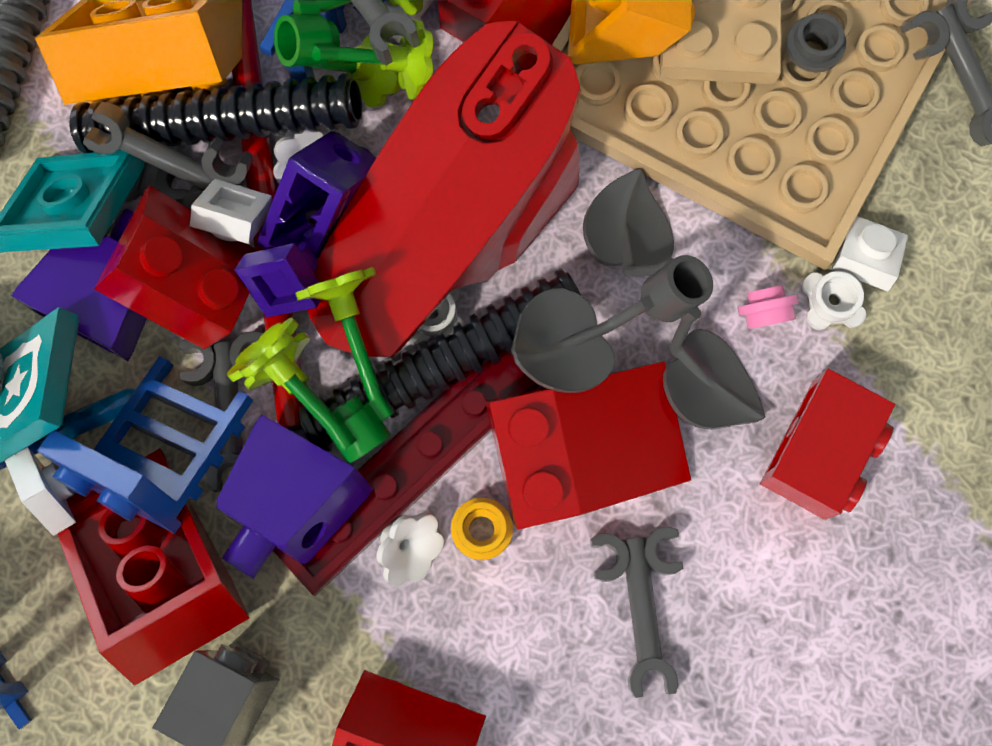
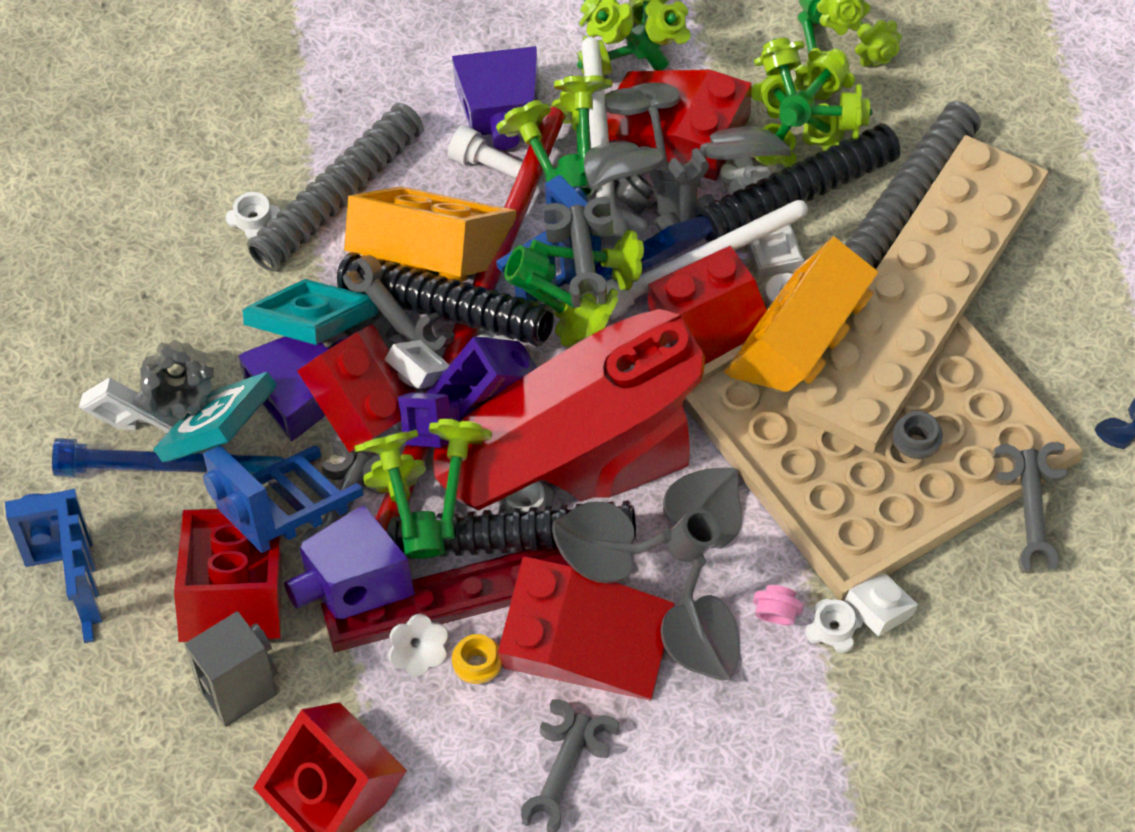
camera: 30 degrees right, 20 degrees down
(40, 491) = (189, 489): white plate -> none
(830, 445) = (764, 715): red brick -> none

